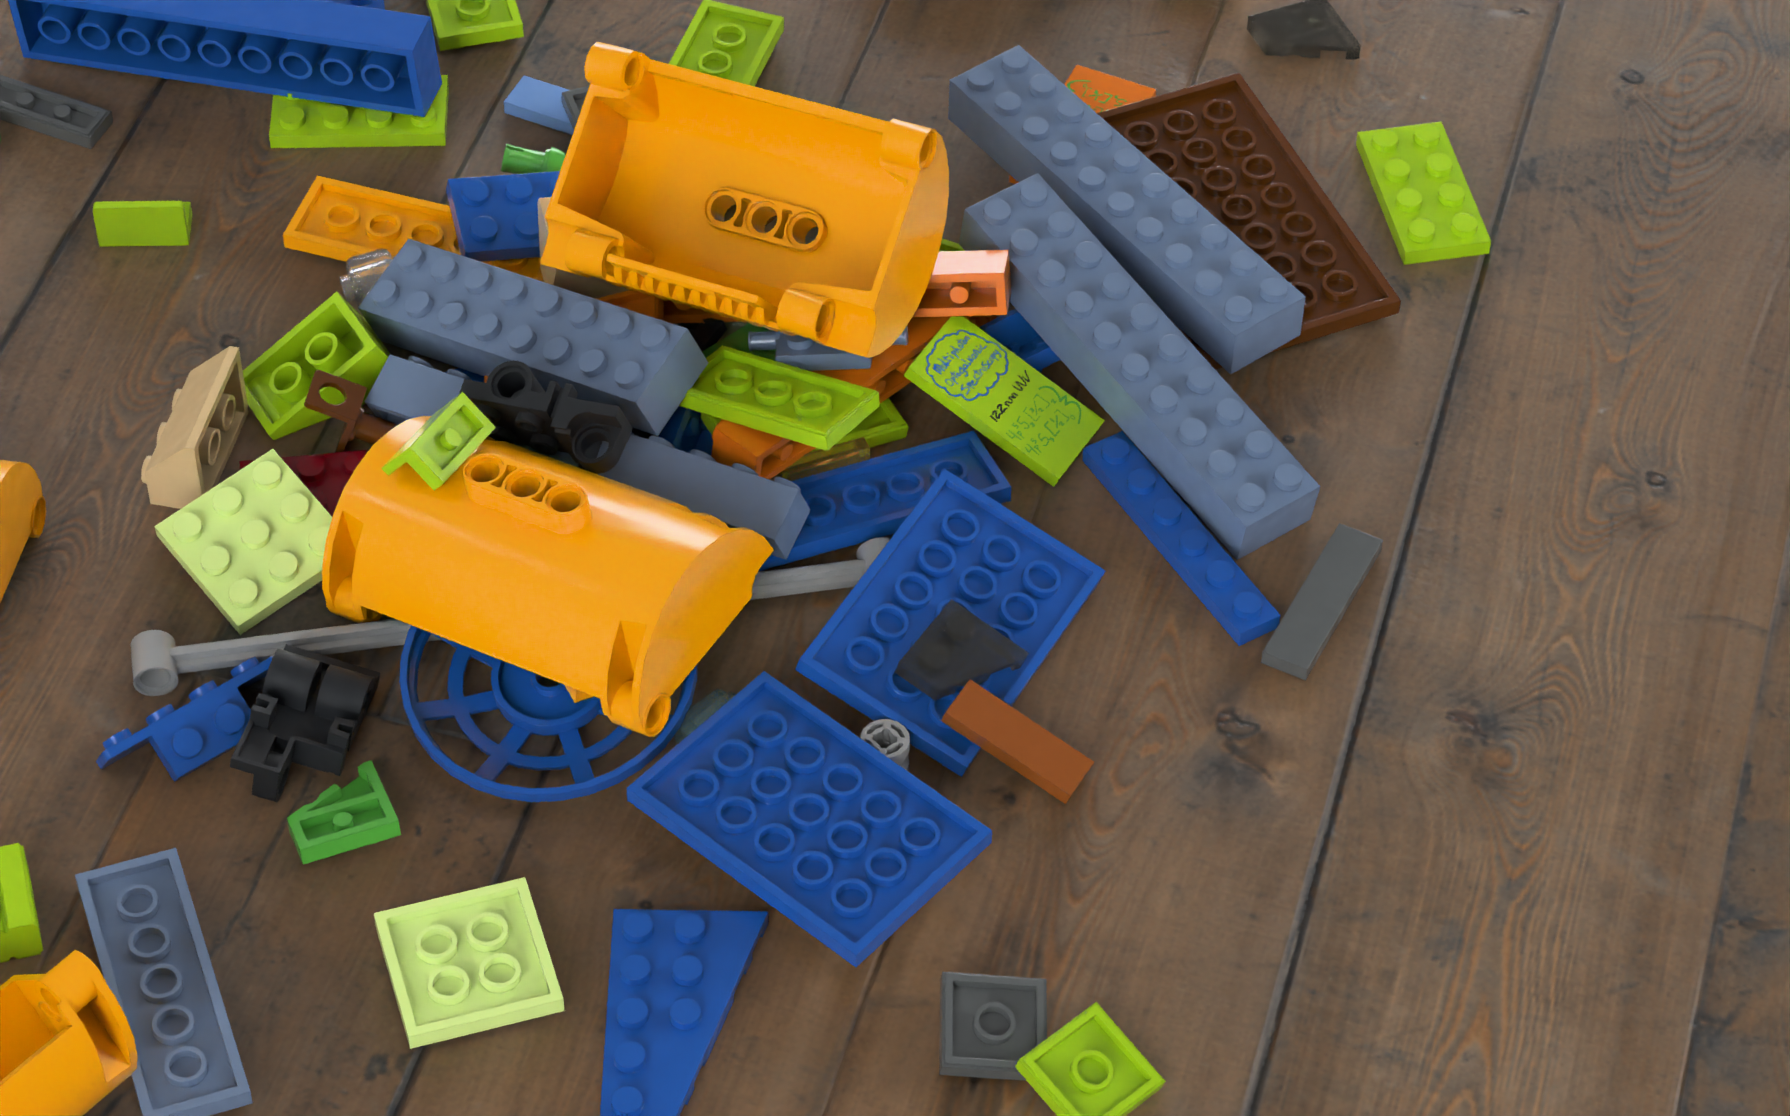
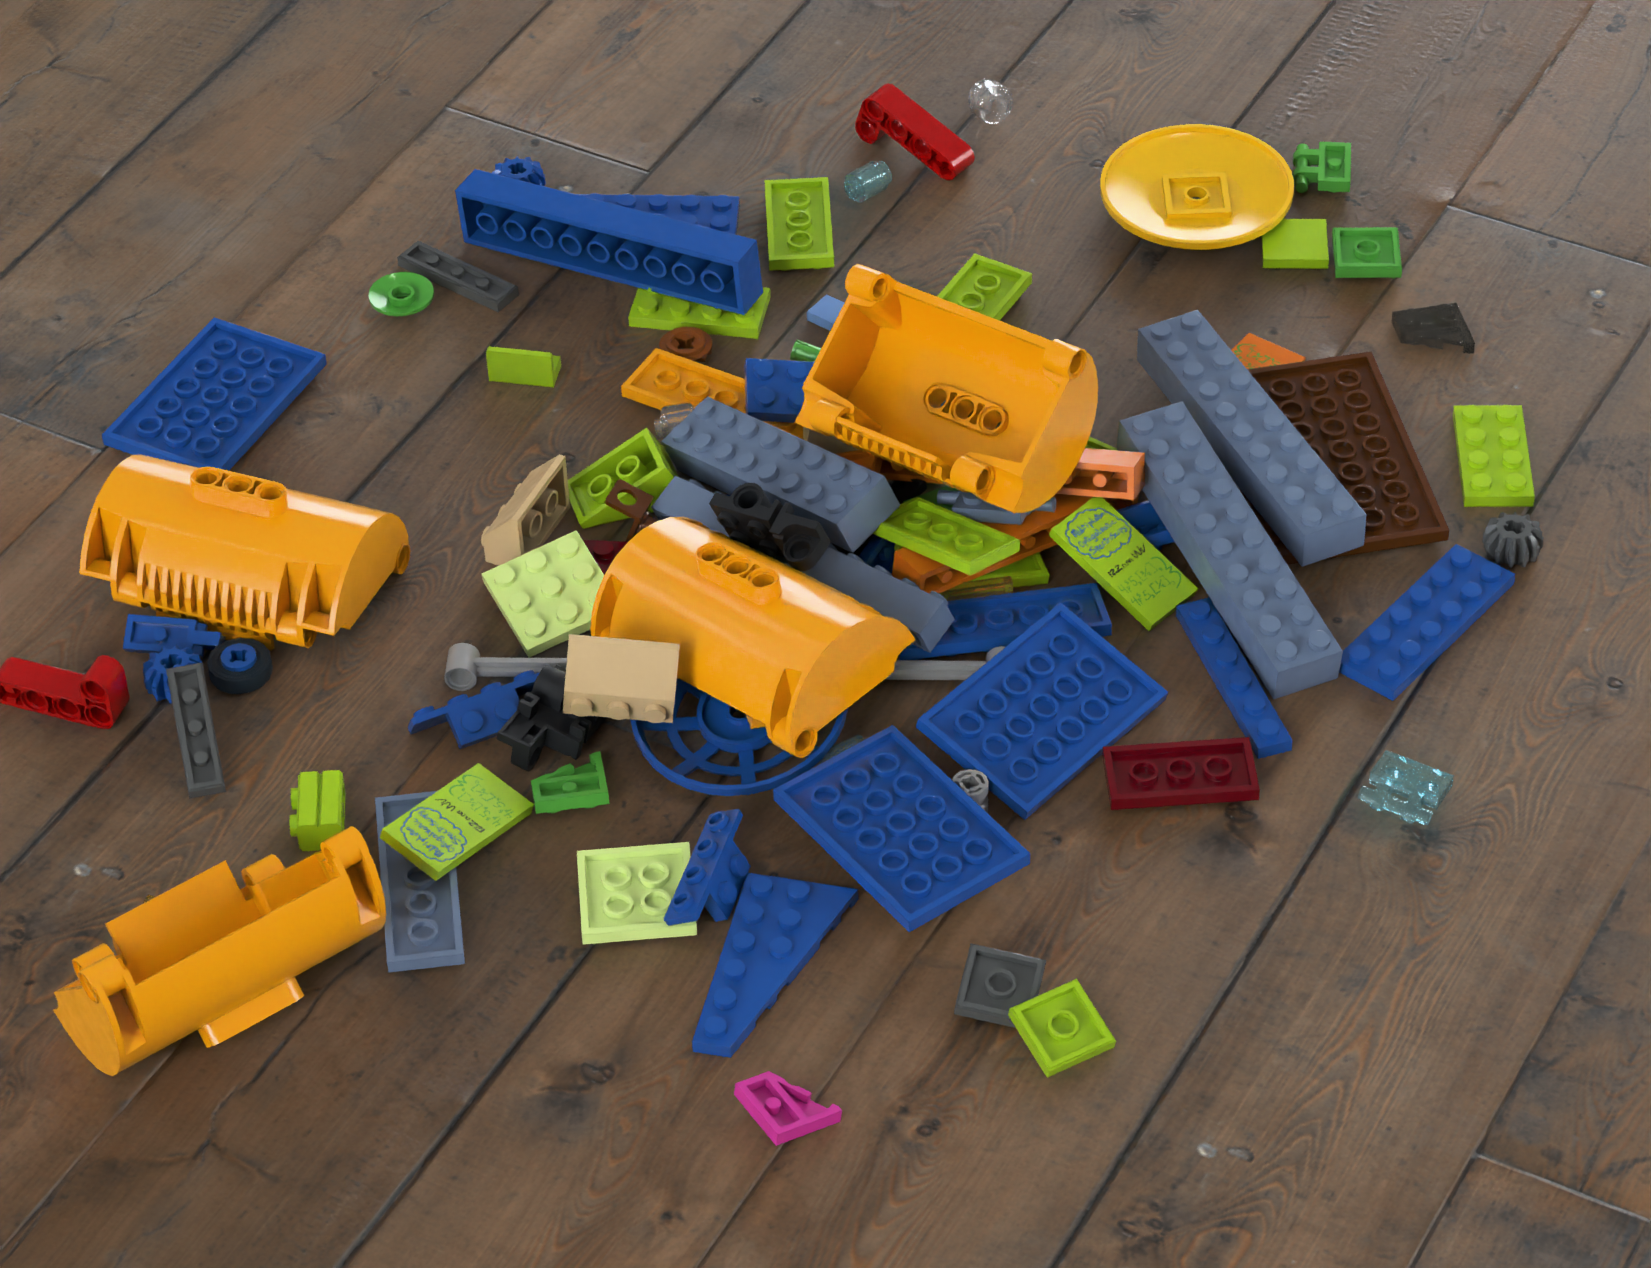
camera: 15 degrees right, 5 degrees down
(198, 895) = (456, 821): none -> lime tile
(352, 156) = (686, 338): none -> dark orange gear
(388, 660) = (620, 678): none -> tan slope
(443, 441) = (689, 532): lime panel -> none
(566, 920) = (712, 874): none -> blue bracket
(957, 650) = (1037, 731): clear smoke wing -> none
(1017, 741) = (1069, 799): dark orange tile -> none
(1149, 682) = (1180, 773): none -> dark red plate
(1321, 601) = (1328, 735): dark grey tile -> none
(1400, 428) = (1424, 621): none -> blue plate
(1443, 650) = (1409, 779): none -> clear light blue plate
(1482, 303) = (1512, 539): none -> dark grey gear

